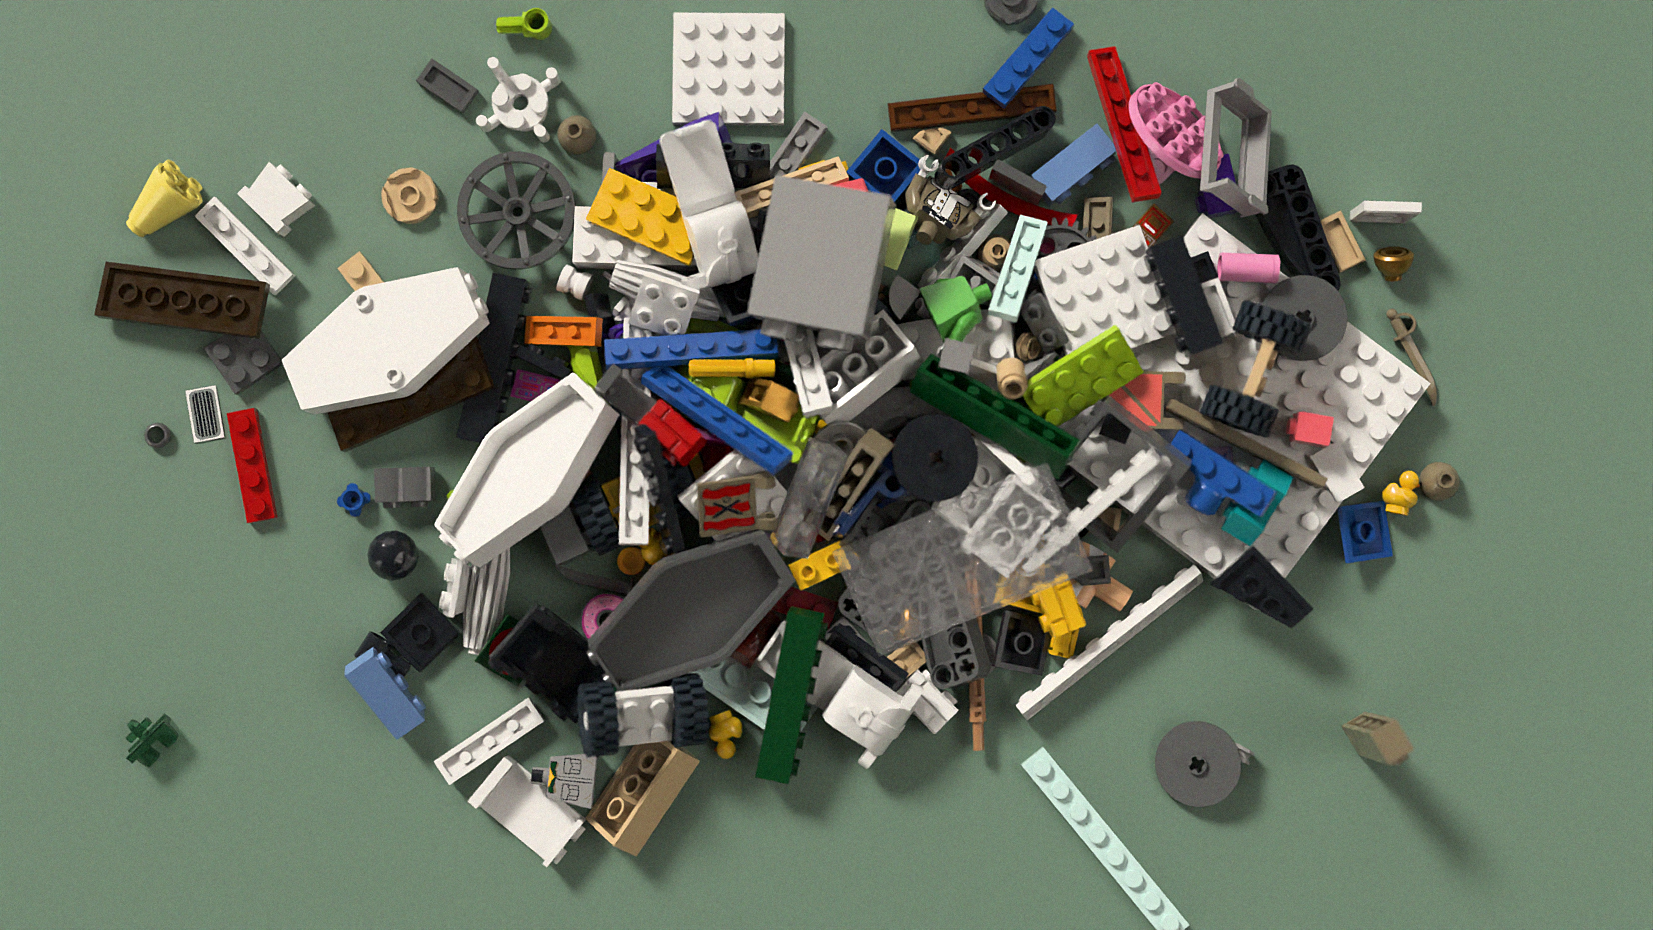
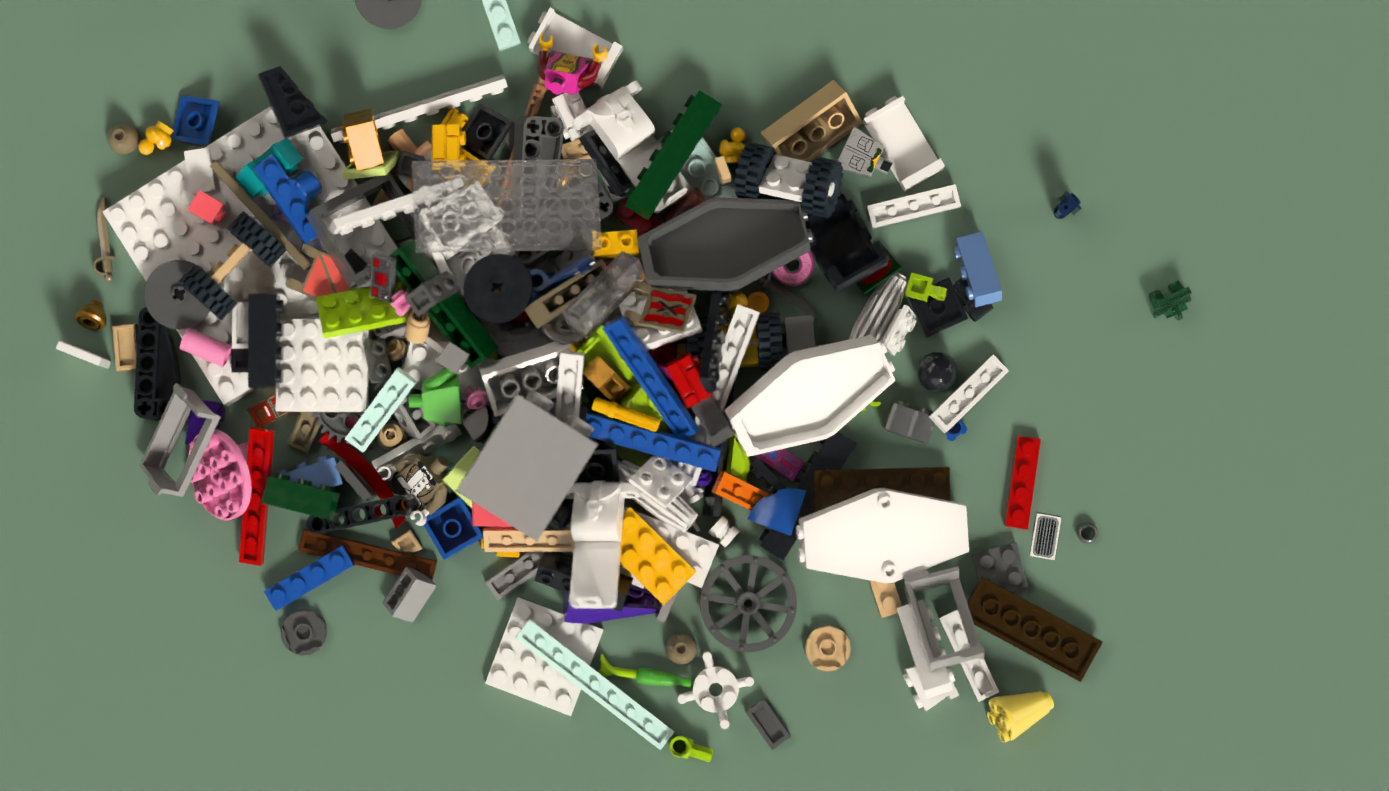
camera: 165 degrees left, 0 degrees up
(292, 229) = (940, 679): none -> white brick
(307, 807) = (1068, 204): none -> dark blue hinge
(321, 308) = (923, 580): none -> light grey piece
(347, 543) = (968, 393): none -> white plate
(445, 647) = (921, 287): none -> lime plate
(516, 326) = (779, 510): none -> blue brick
(607, 87) = (644, 675): none -> bright green piece
(659, 54) = (594, 684): none -> light aqua plate
(724, 697) = (722, 171): none -> tan tile
(907, 79) = (409, 594): none -> light grey brick
(913, 322) = (475, 398): none -> bright pink plate
(950, 749) = (566, 71): none -> torso
(955, 781) = (574, 40): none -> white panel
(1008, 421) = (432, 292): none -> dark grey bracket
(1040, 399) = (400, 303): none -> bright pink plate
(1072, 138) = (301, 496): none -> dark green brick
(1074, 419) = (382, 277): none -> tile
(1139, 552) = (390, 160): none -> yellowish green tile
(1160, 577) = (364, 141): none -> brick

